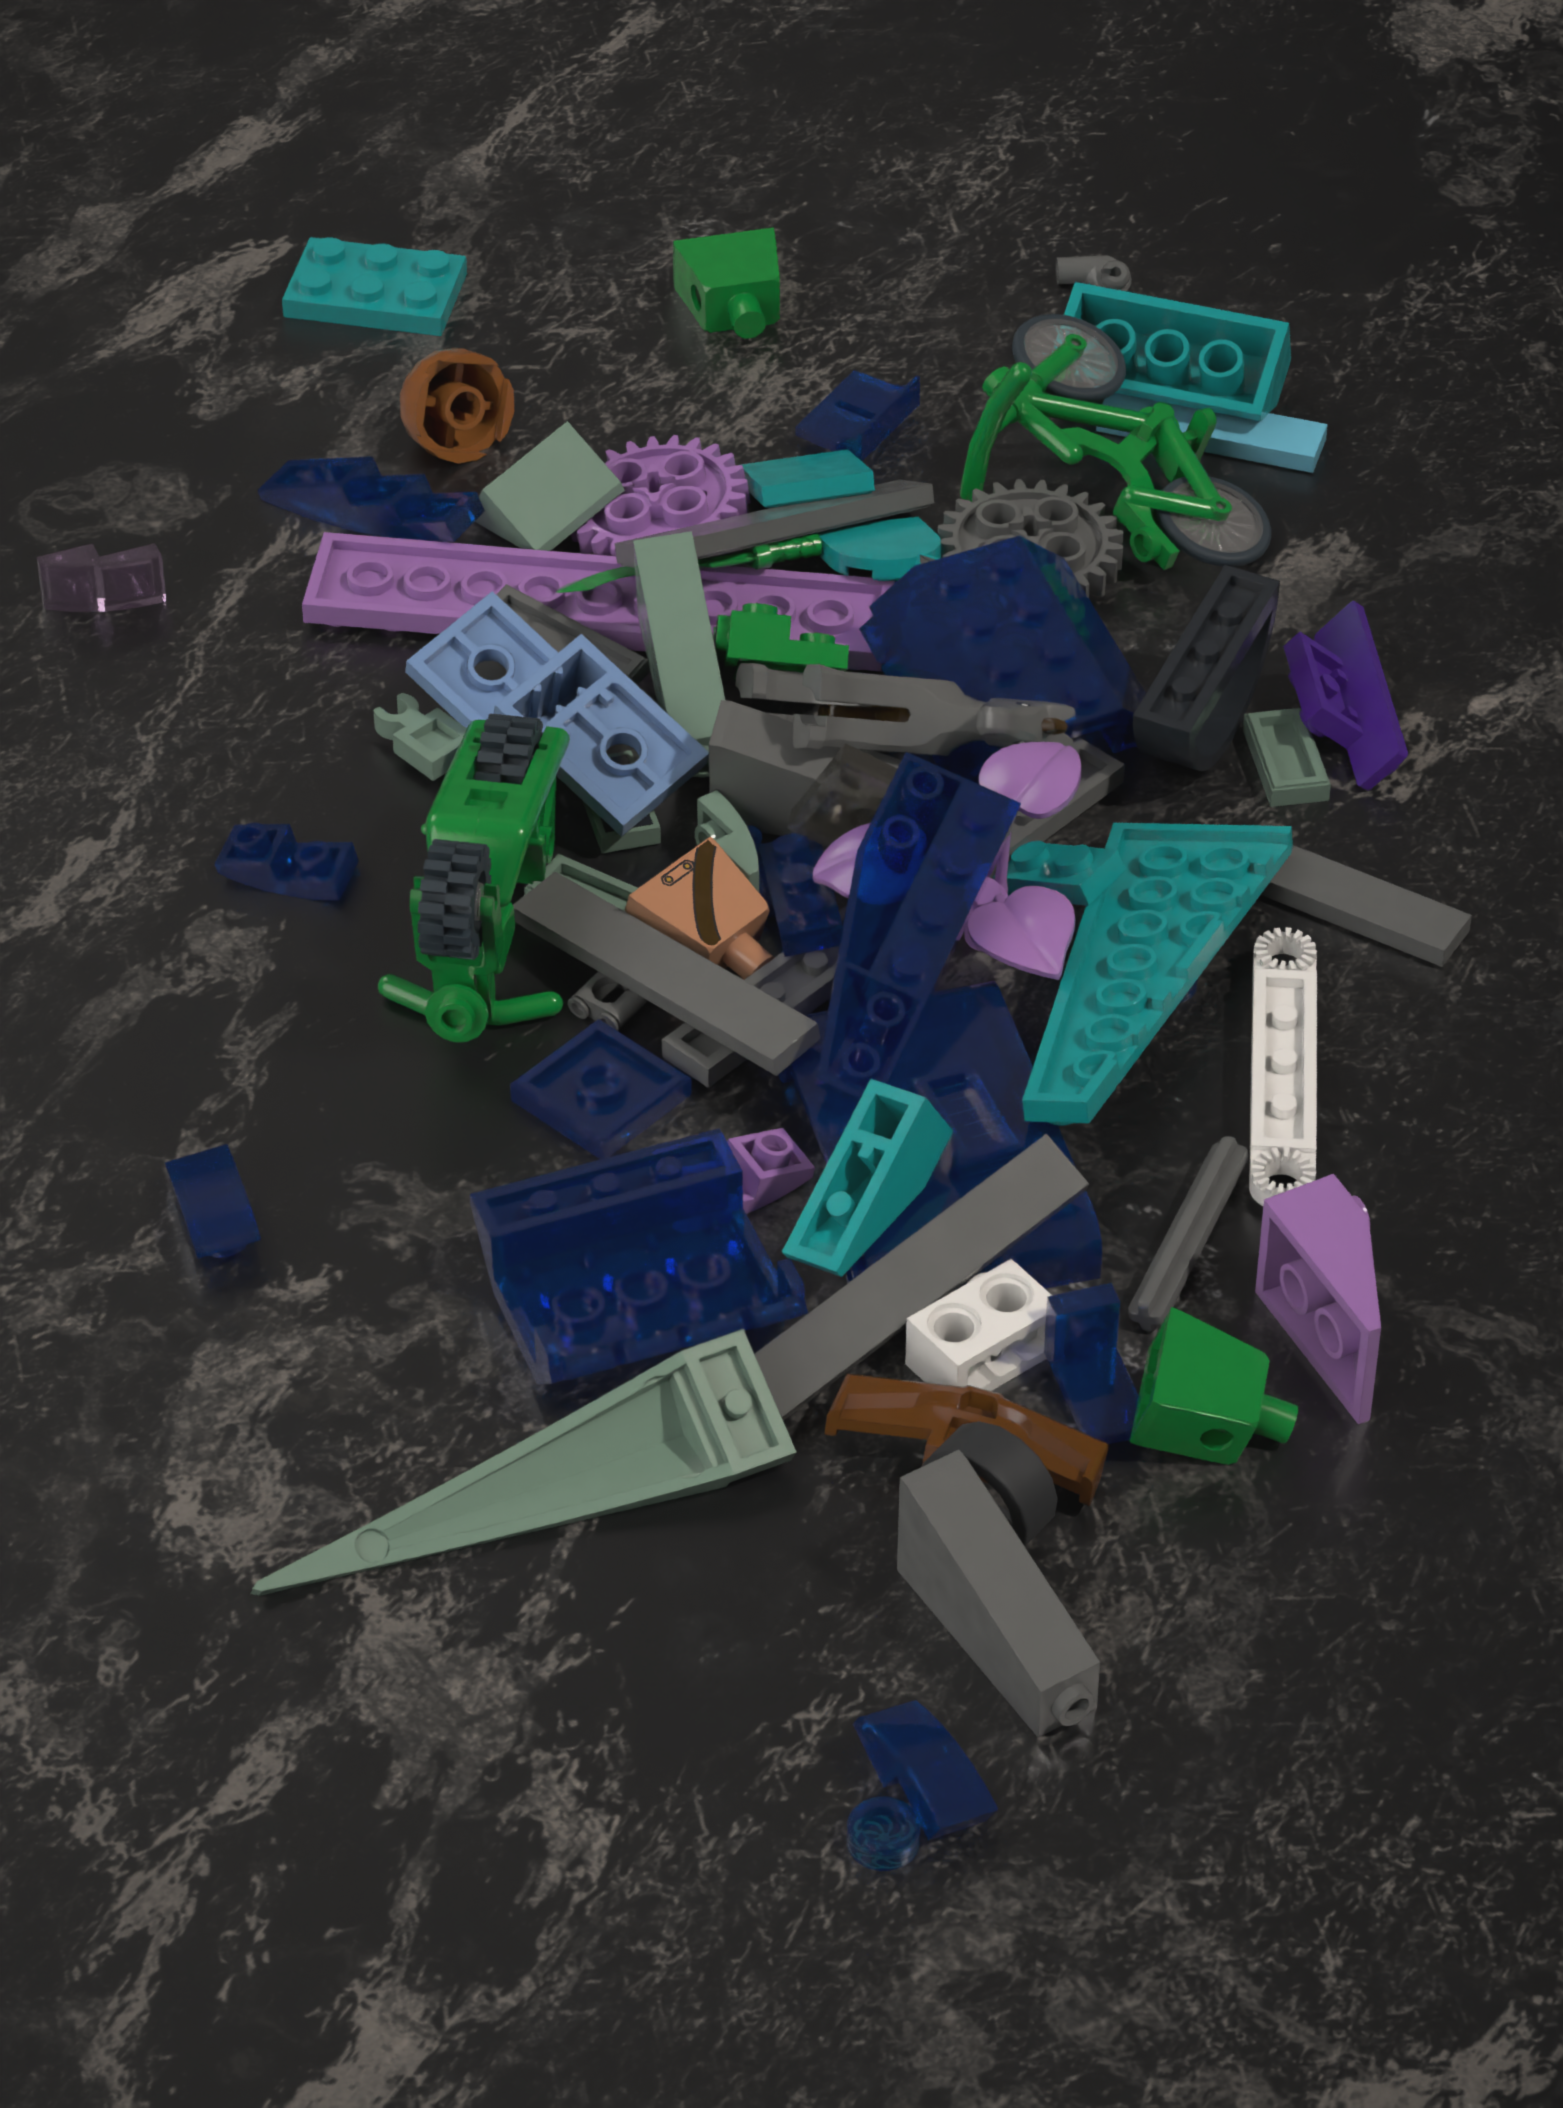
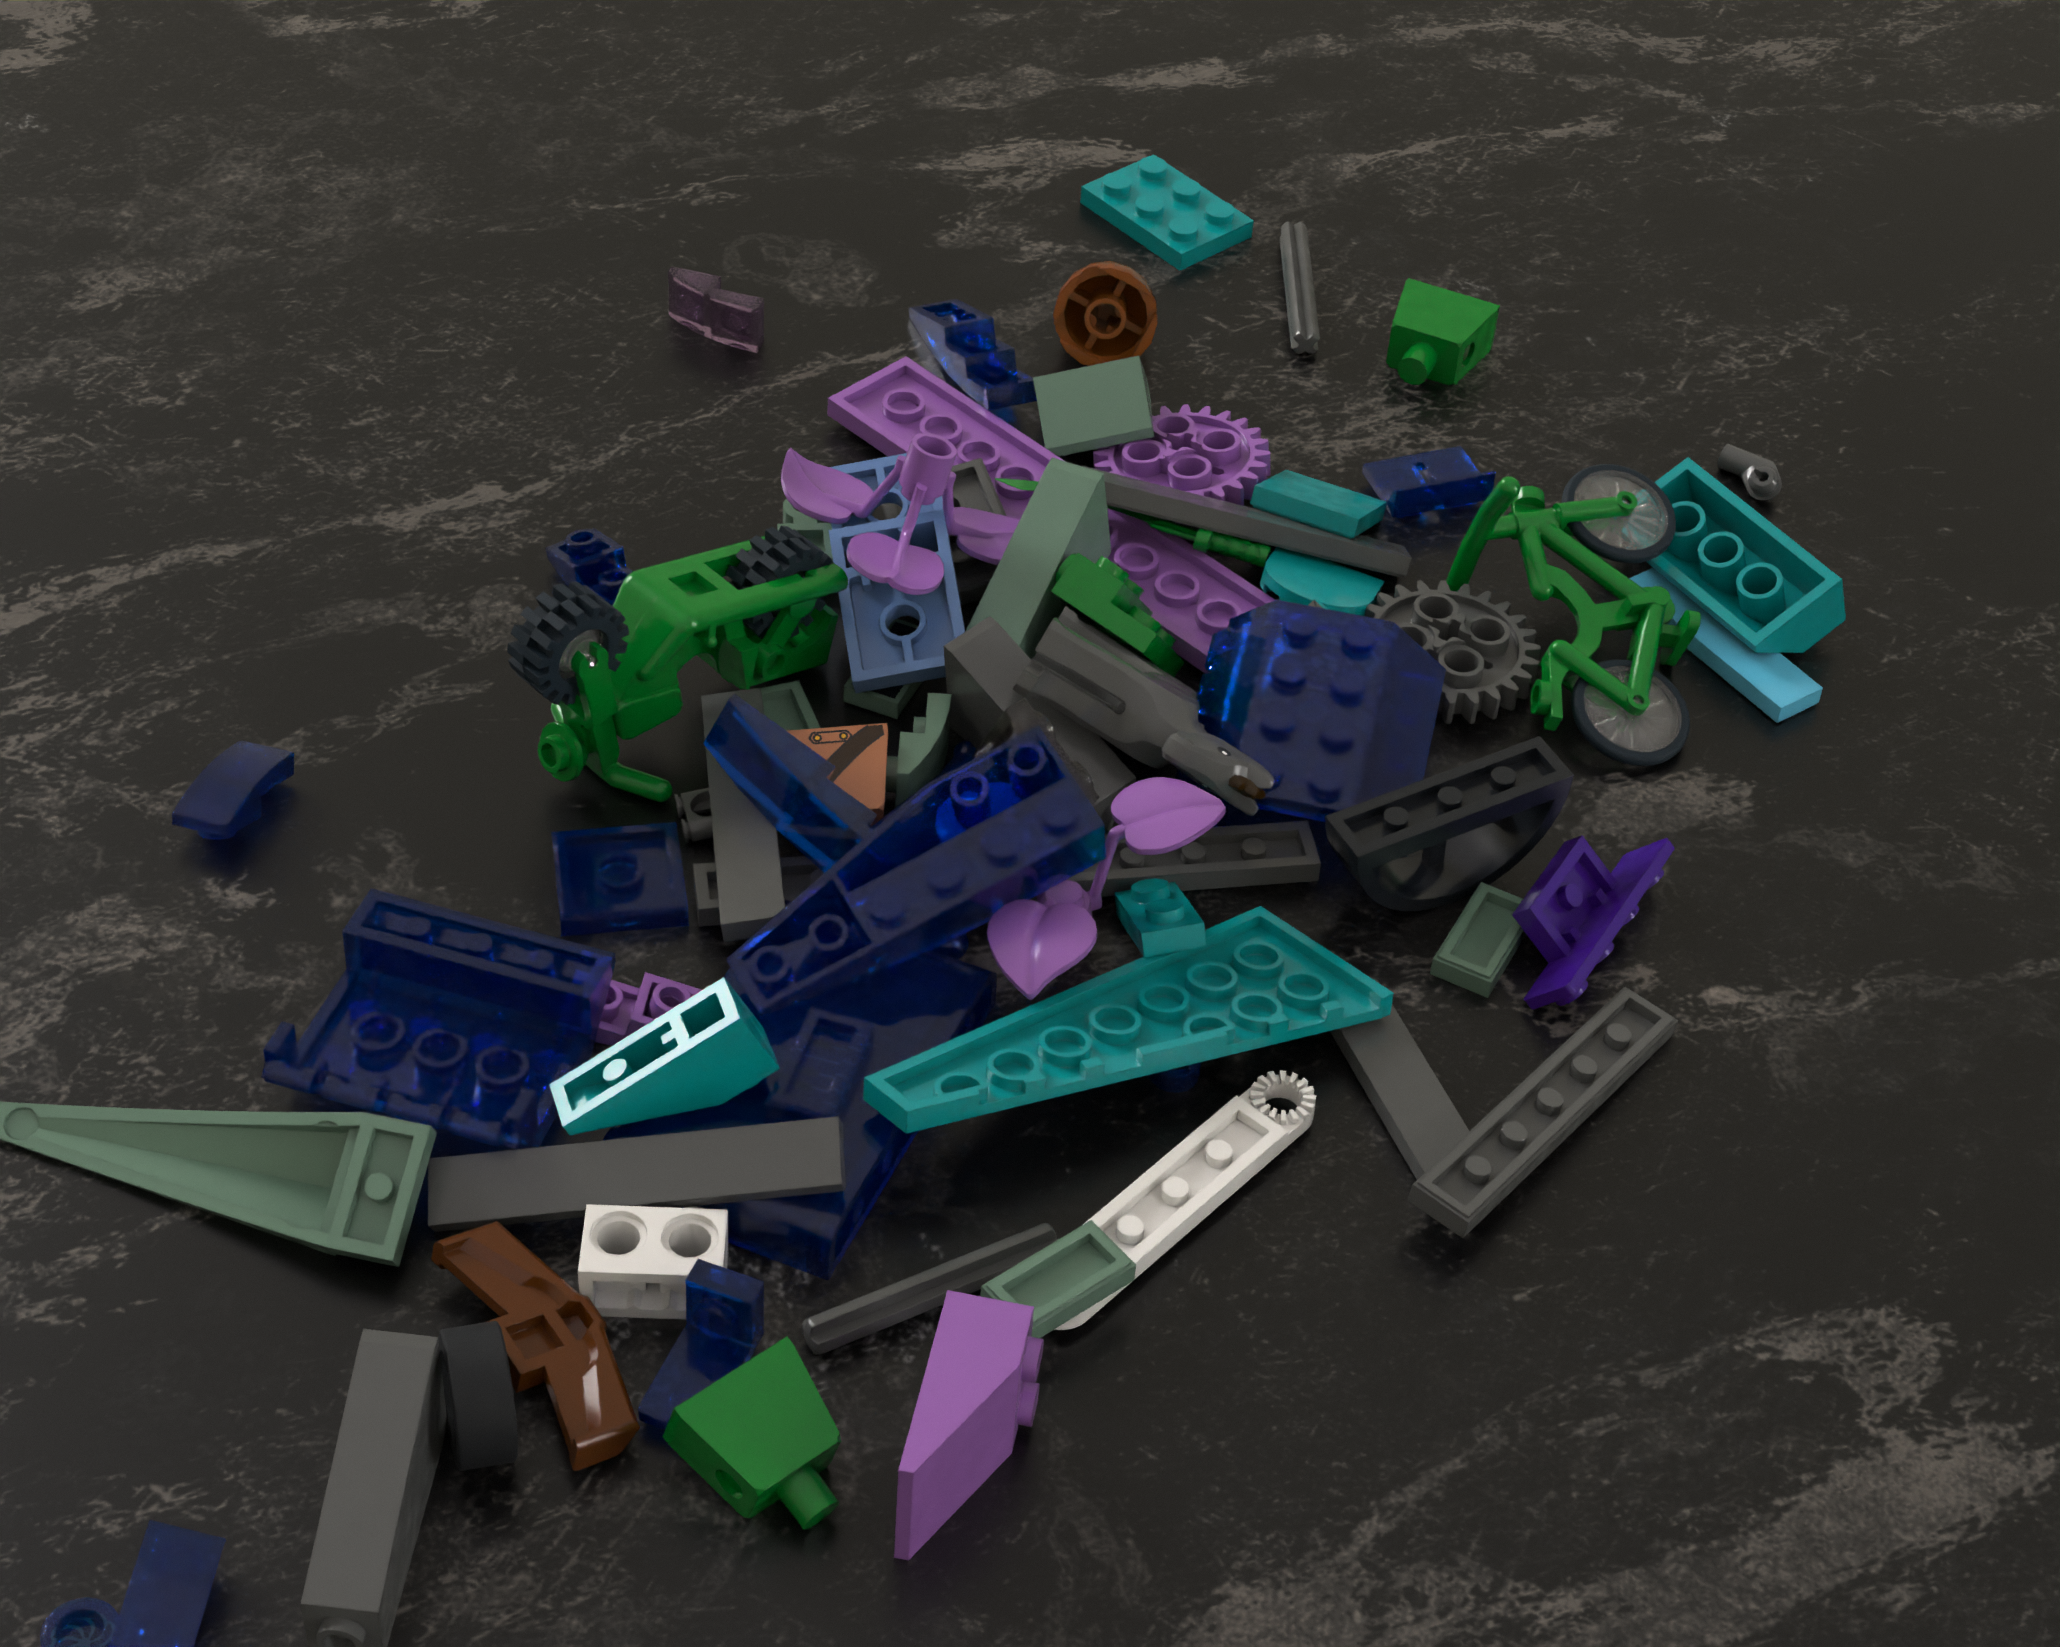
camera: 35 degrees right, 0 degrees up
(557, 613) = (924, 475): none -> medium lavender plant
(568, 298) = (1299, 288): none -> dark grey axle
(722, 928) = (788, 784): none -> clear blue slope
(1286, 1157) = (1064, 1277): none -> sand green tile
(1466, 854) = (1541, 1112): none -> dark grey tile

